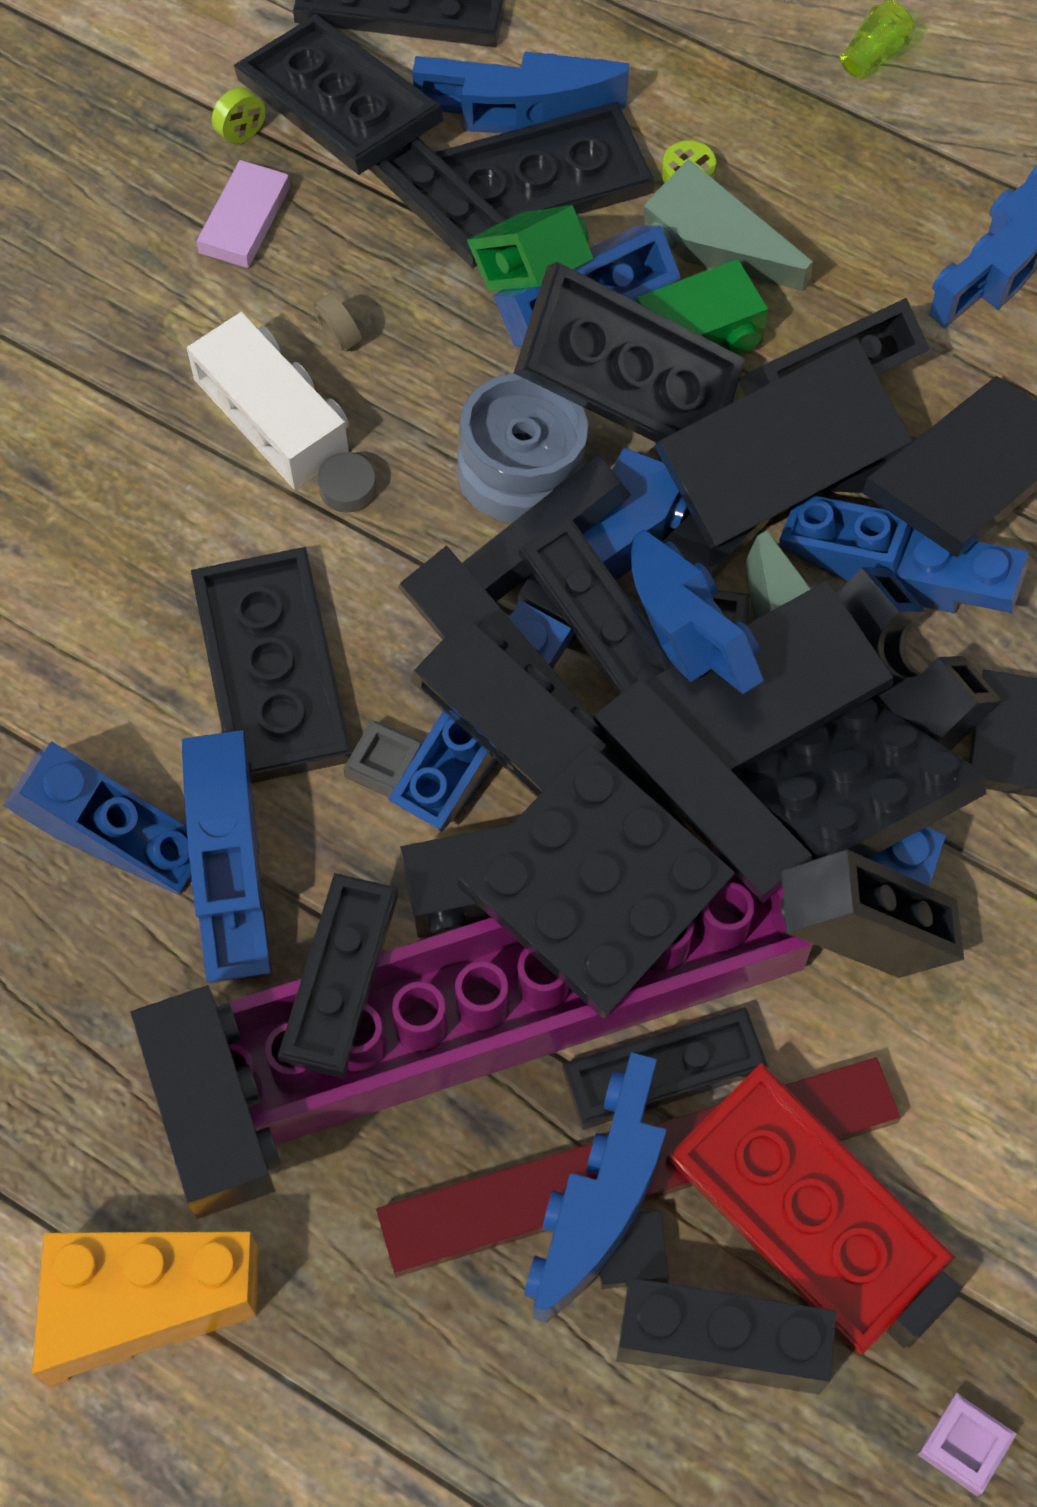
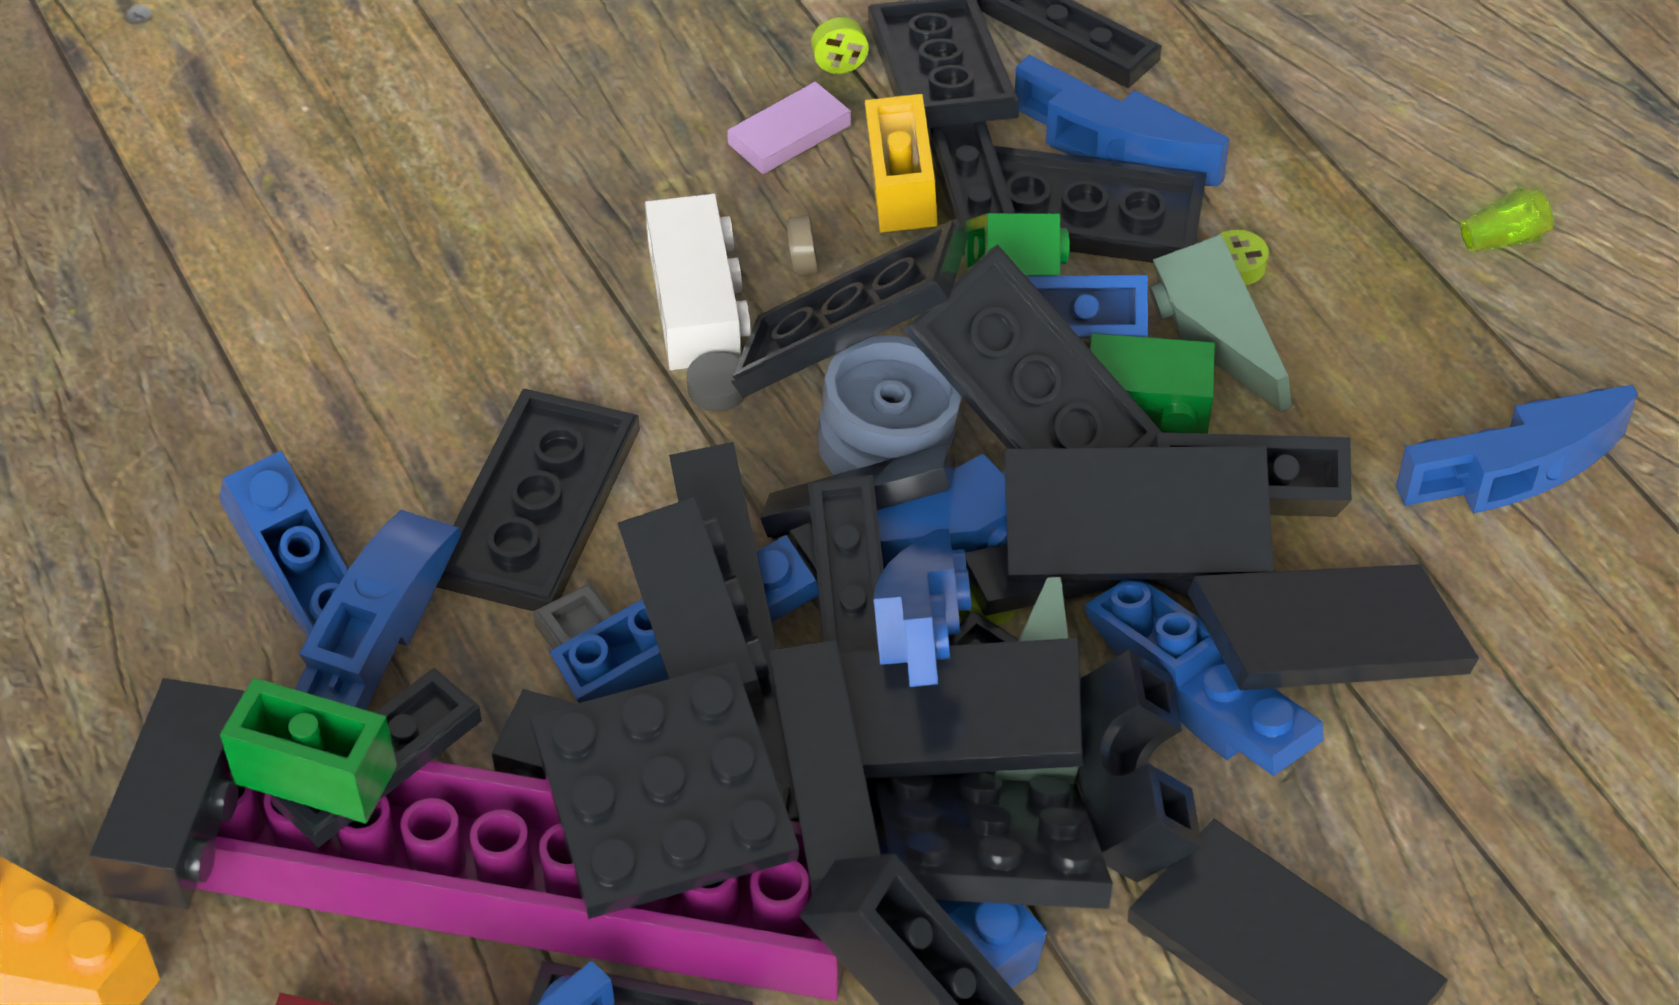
camera: 30 degrees right, 15 degrees down
(308, 1009) = (309, 750): none -> green brick
(377, 208) = (901, 163): none -> yellow slope
(444, 370) = (851, 308): none -> black tile

